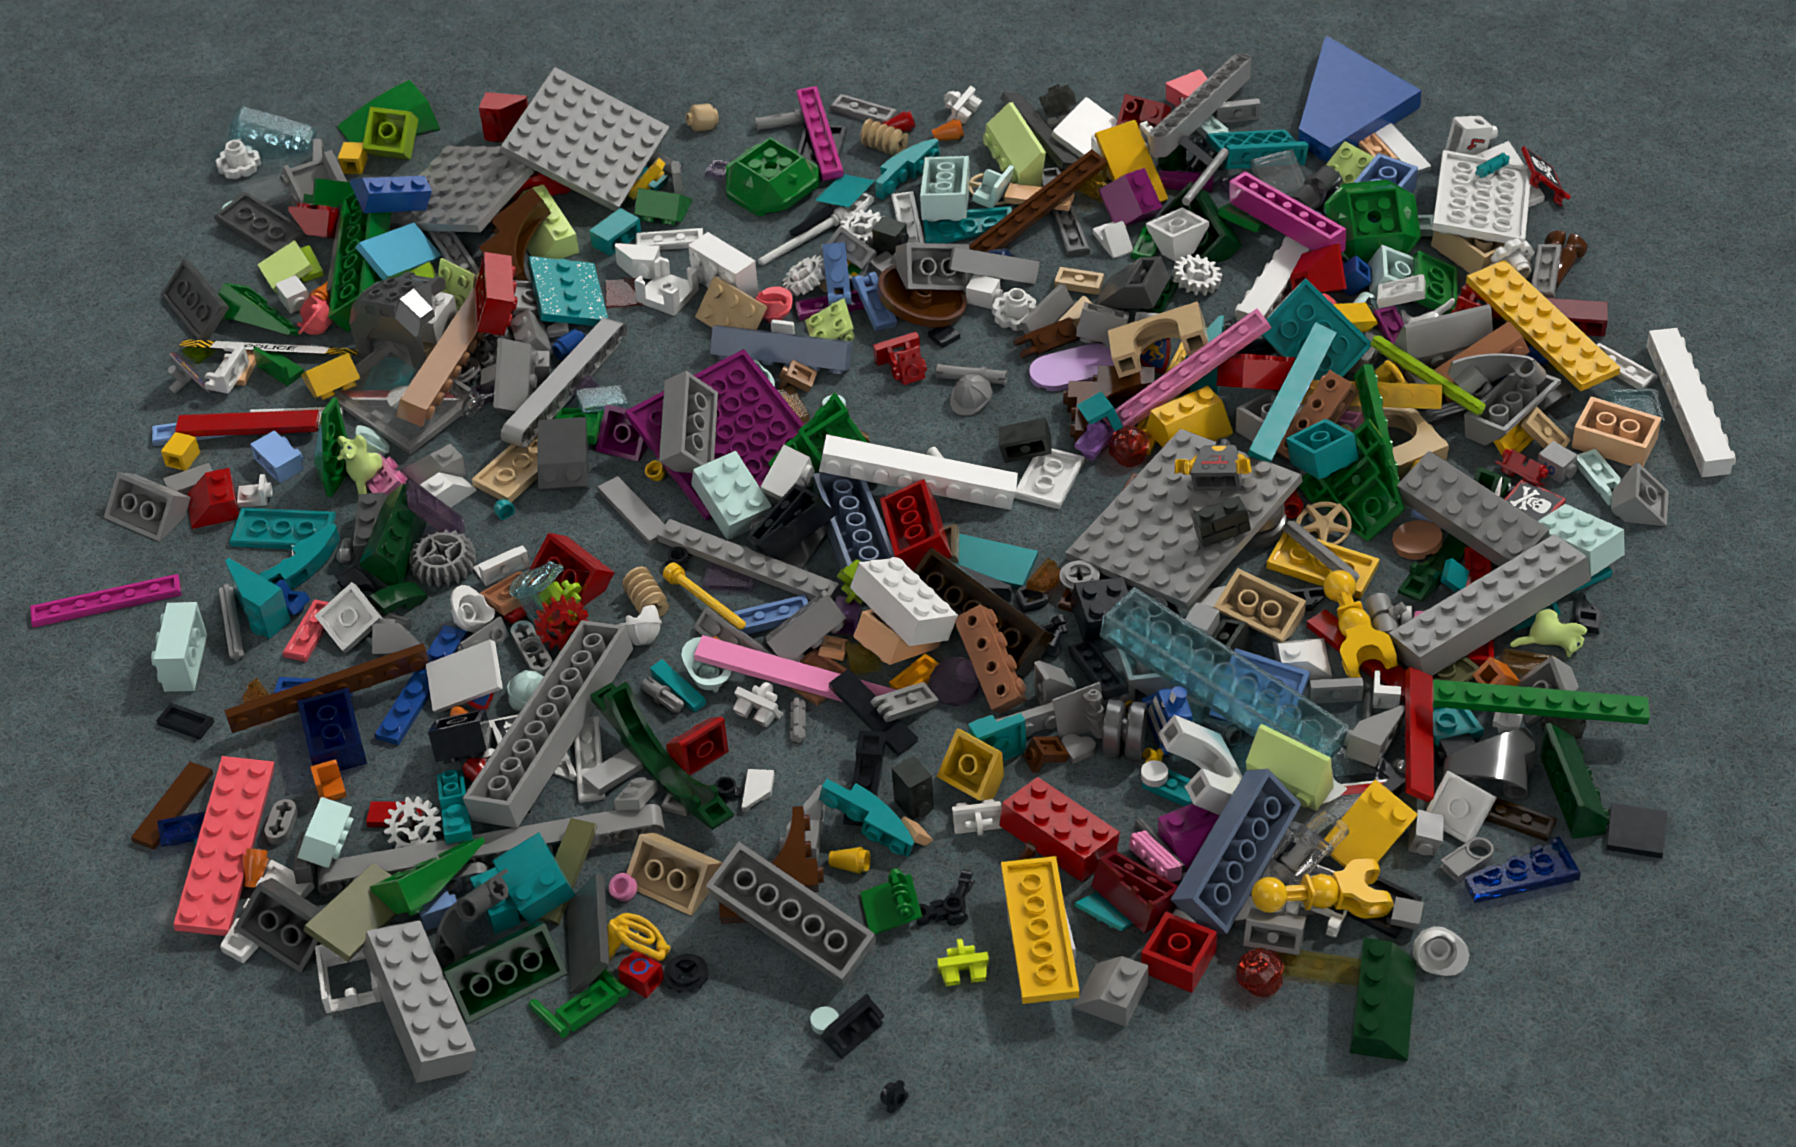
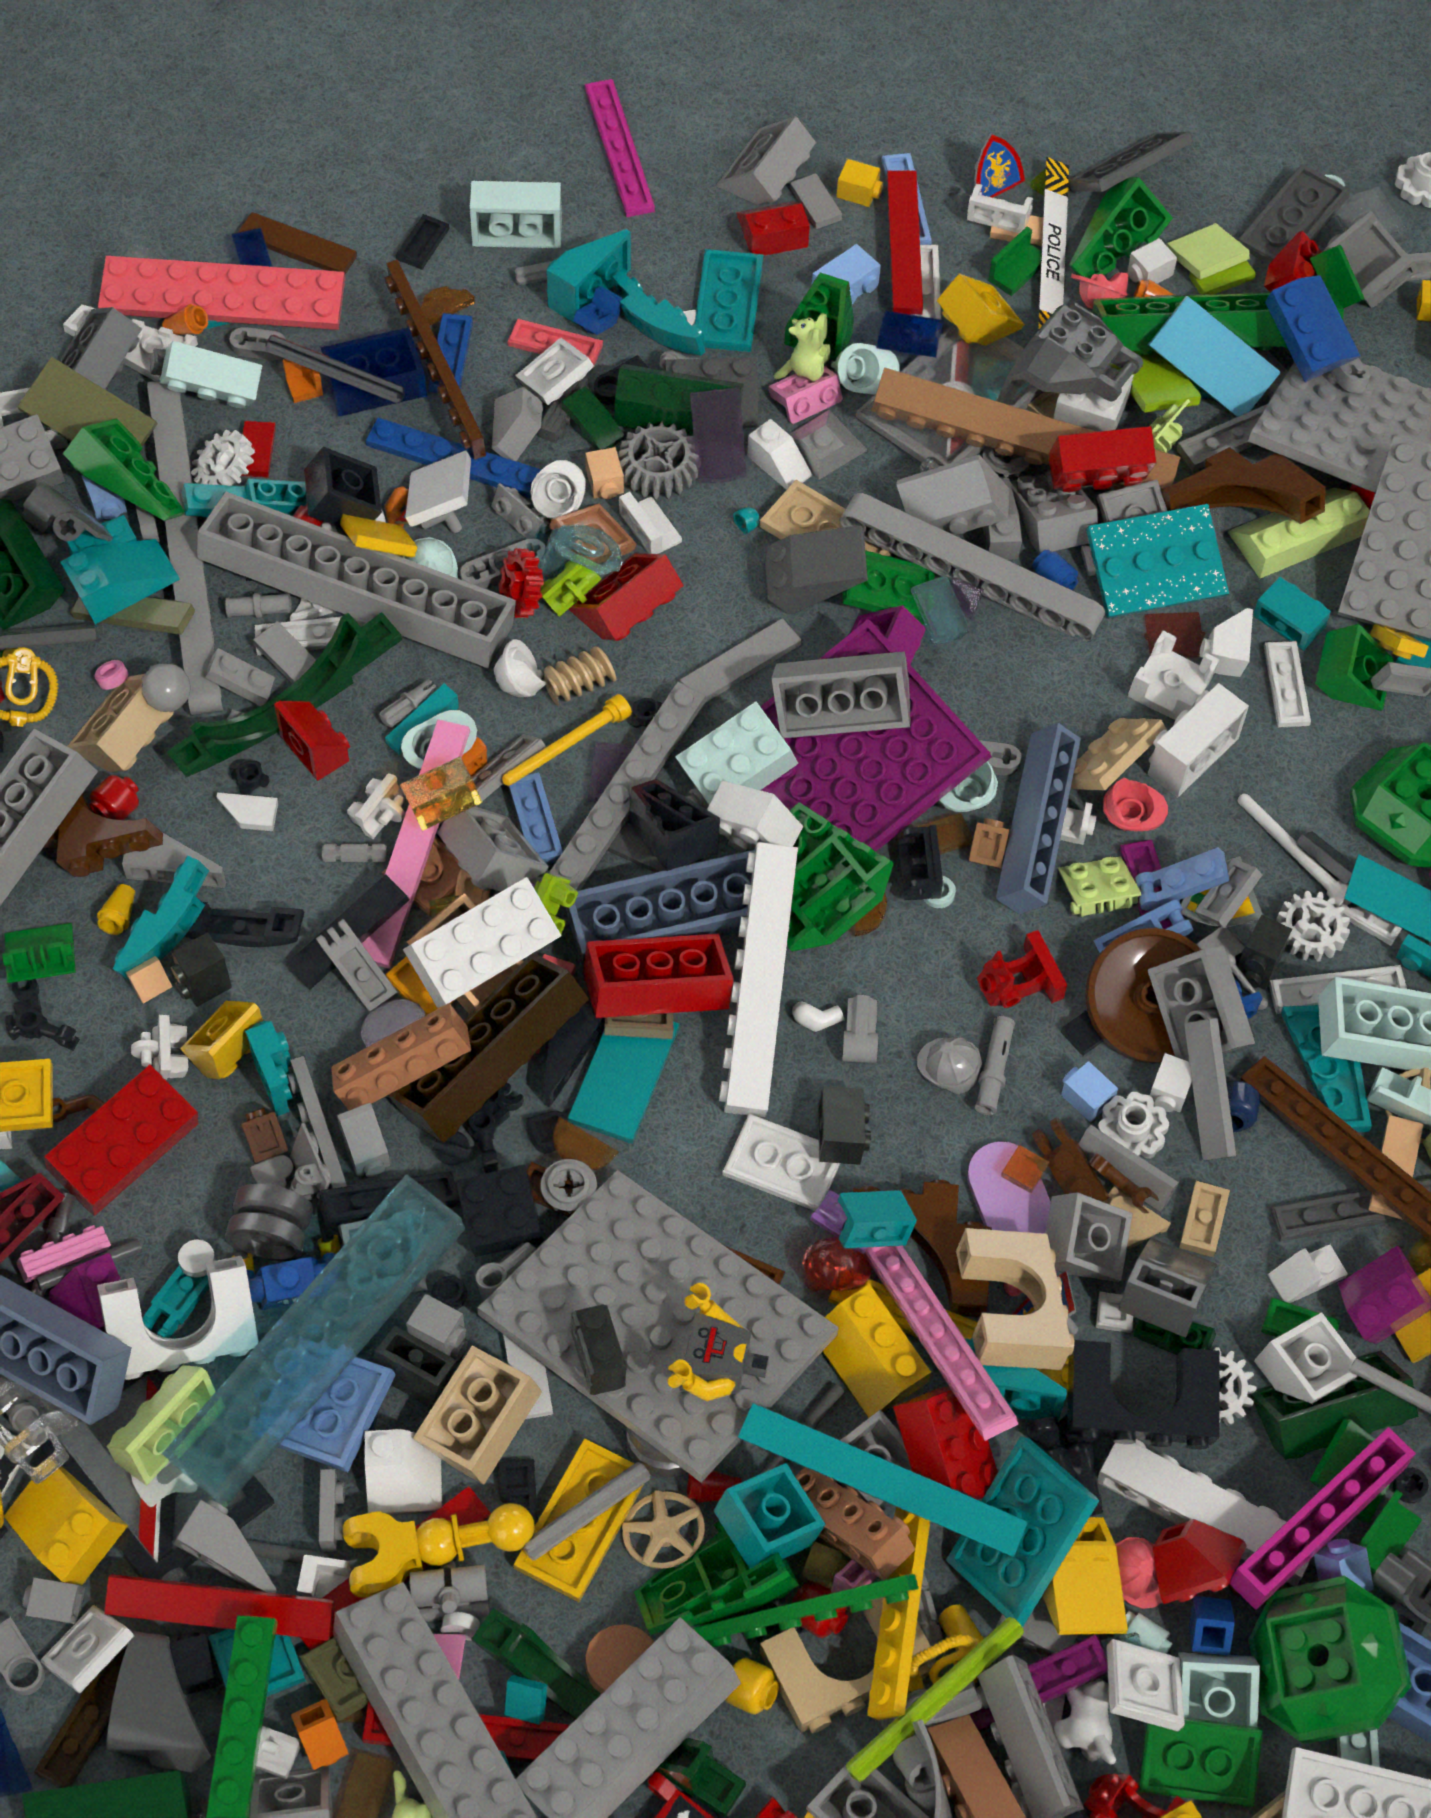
camera: 85 degrees right, 15 degrees up
(255, 494) = (787, 265): white bracket -> none
(338, 740) = (335, 369): none -> black axle
(354, 408) = (910, 334): none -> clear blue tile
(446, 583) = (604, 473): none -> light nougat brick
(510, 707) = (378, 536): none -> yellow tile
(559, 795) = (258, 605): none -> light grey pin
(651, 826) = (165, 687): none -> light grey hair
(774, 652) = (441, 793): none -> clear yellow brick
(805, 275) = (1189, 841): white gear -> none
(811, 398) = (920, 863): none -> black hinge
(956, 438) = (860, 1037): none -> light grey piece
(991, 328) = (1088, 1090): none -> light blue brick
(1051, 357) = (1025, 1169): none -> clear orange tile
(1060, 311) = (1122, 1182): none -> reddish brown arm
(1223, 271) = (1097, 1413): none -> black arch

